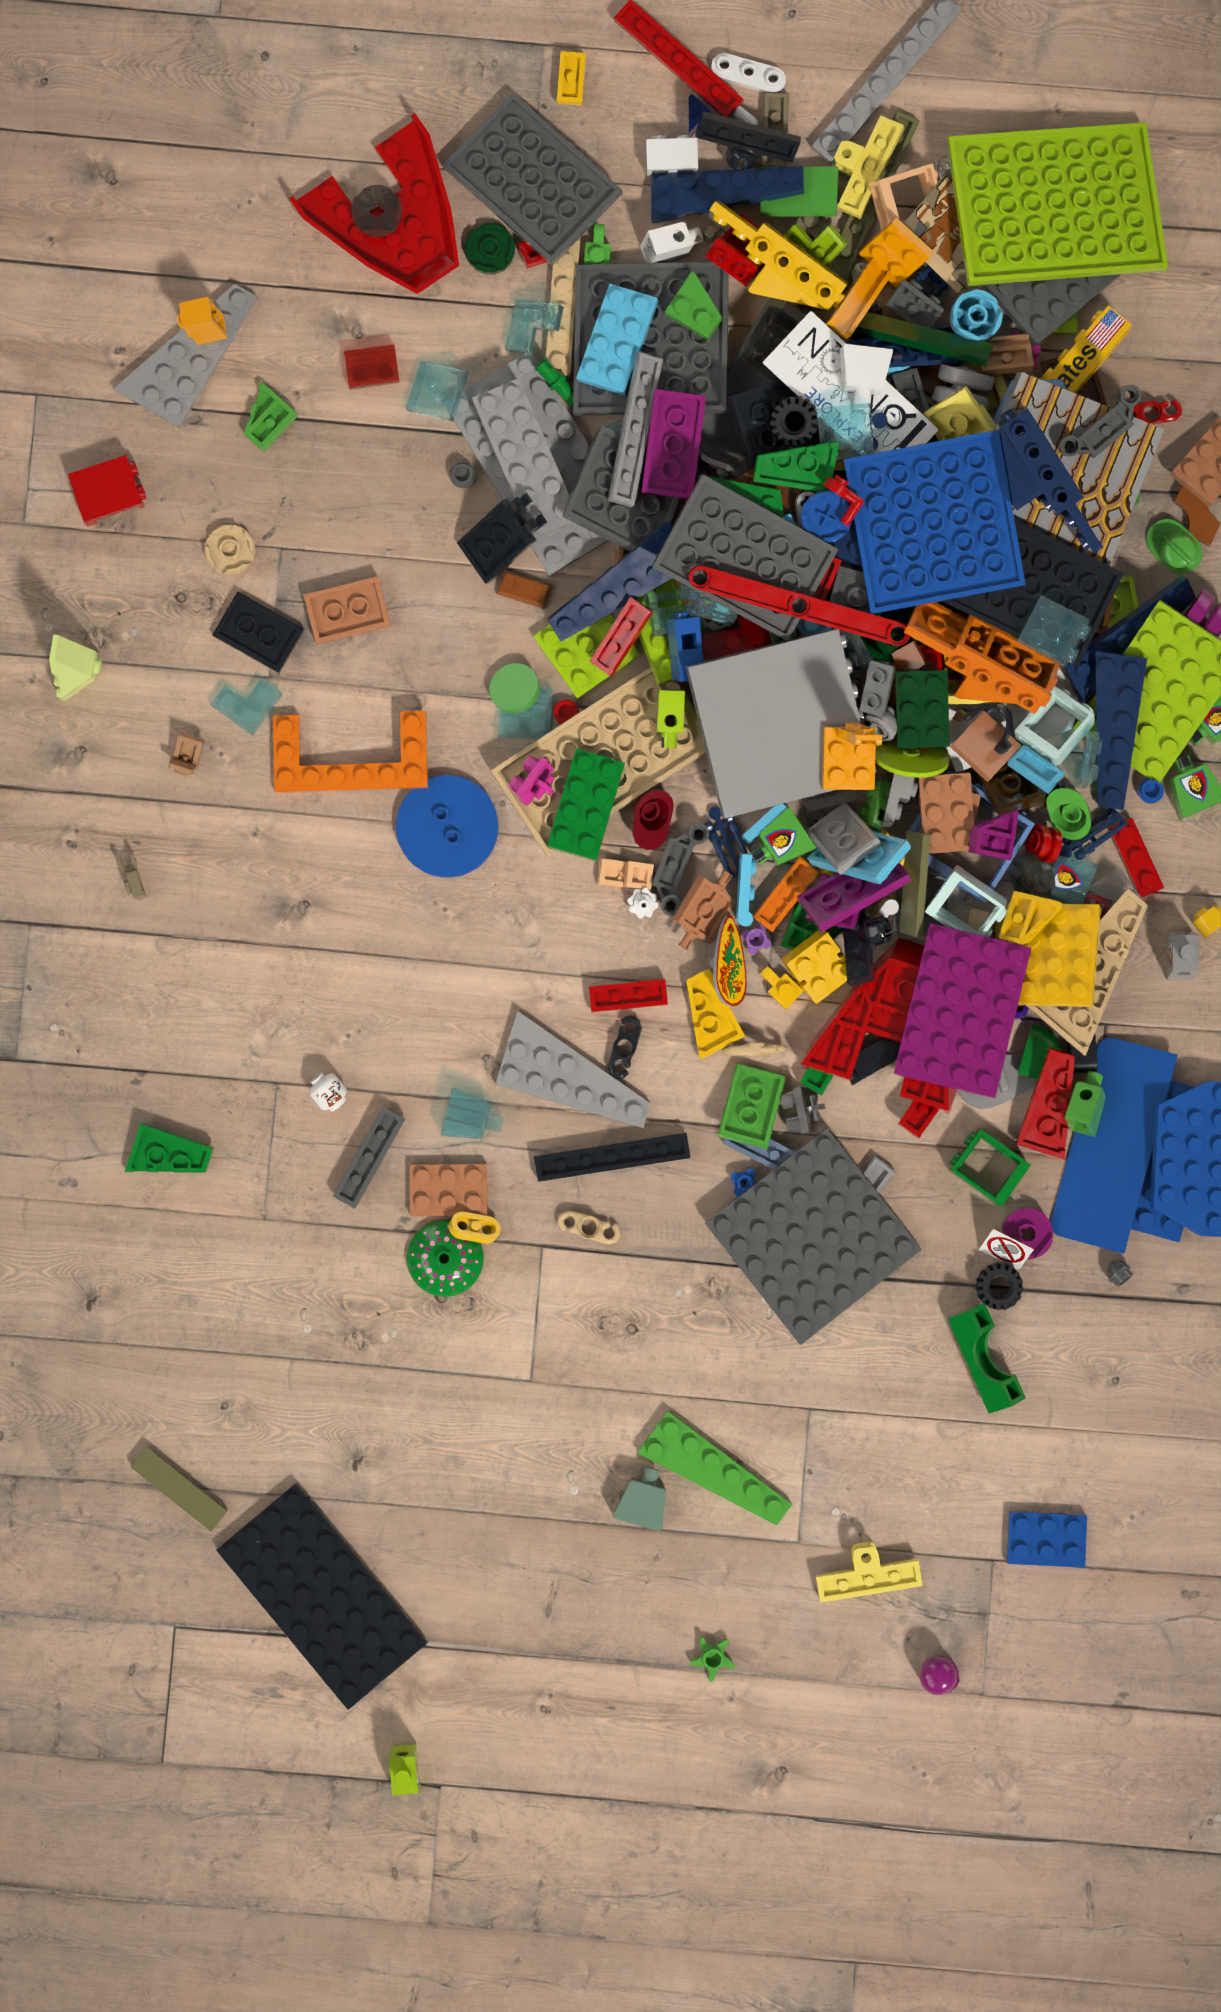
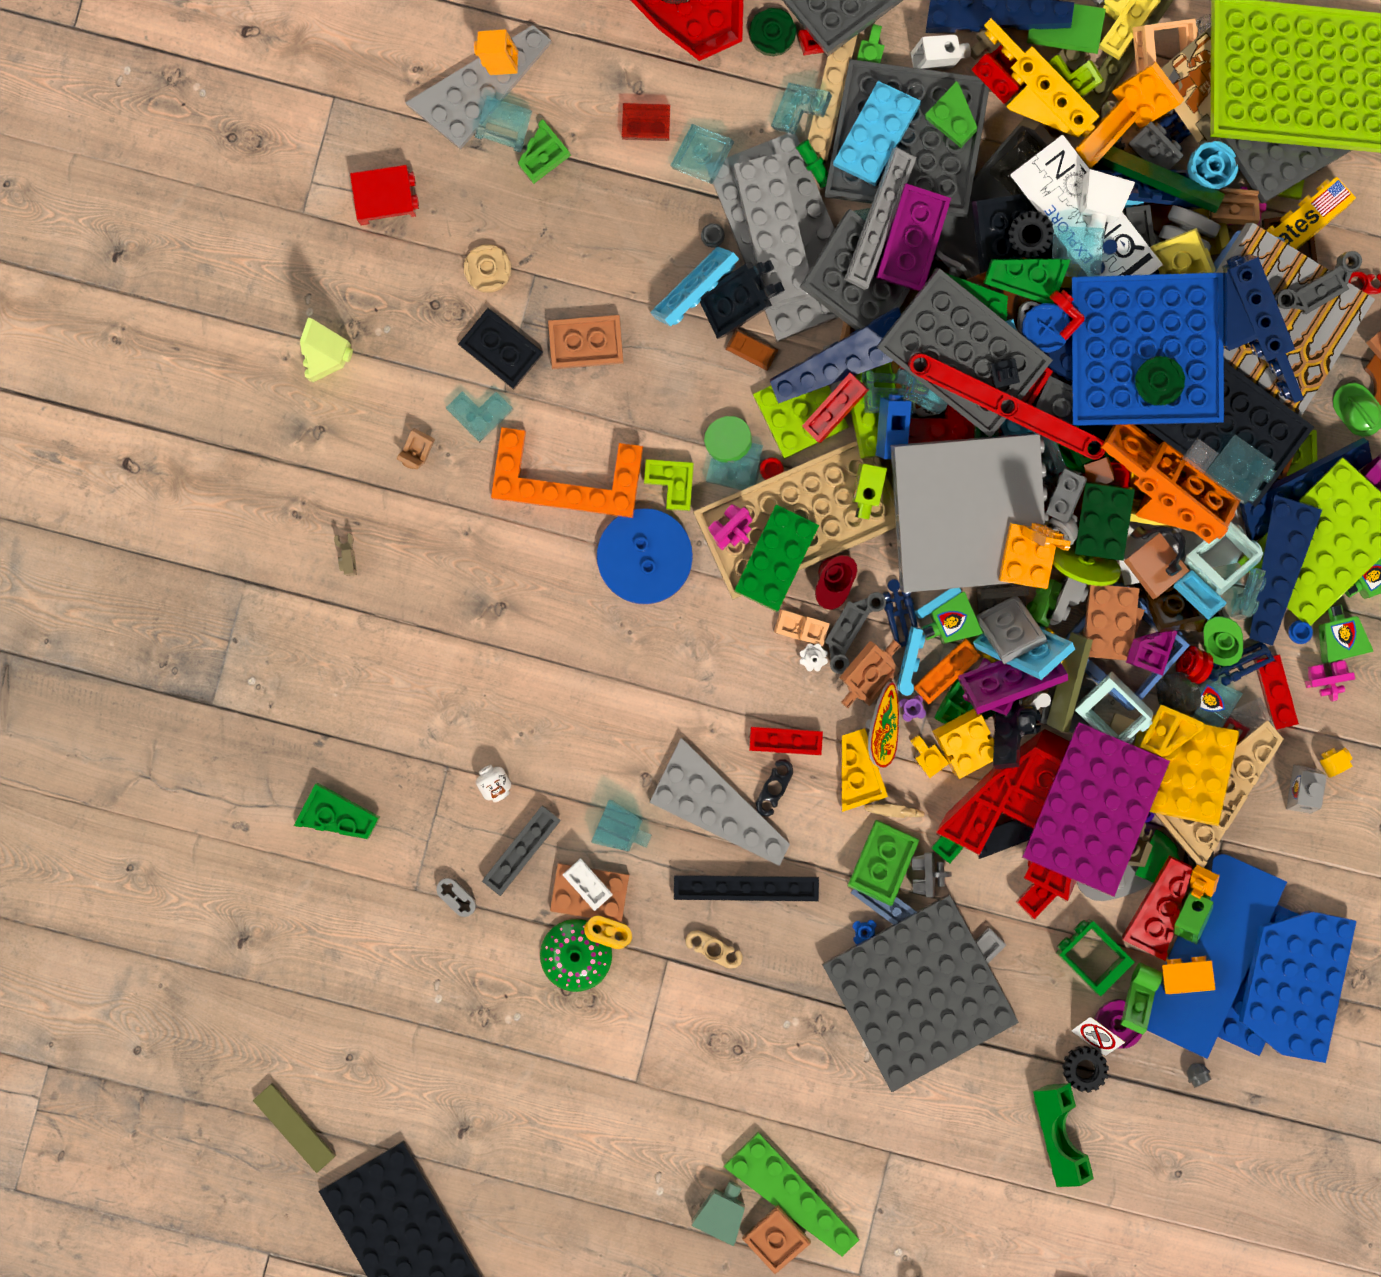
camera: 10 degrees right, 0 degrees up
(221, 385) = (504, 116): none -> clear light blue plate
(305, 1223) = (460, 892): none -> light grey beam
(444, 1180) = (587, 884): none -> white plate
(451, 533) = (690, 289): none -> medium azure plate
(467, 737) = (676, 476): none -> lime plate
(705, 1519) = (776, 1239): none -> nougat tile
(790, 571) = (1004, 372): none -> black tile
(952, 552) = (1159, 381): none -> dark green tile
(1009, 623) = (1200, 456): none -> clear plate
(1018, 1044) = (1142, 848): none -> dark tan plate
(1044, 1201) = (1140, 997): none -> bright green plate
(1088, 1068) = (1203, 882): none -> light orange tile
(1090, 1170) = (1188, 977): none -> light orange brick
(1199, 828) = (1340, 674): none -> dark pink hips

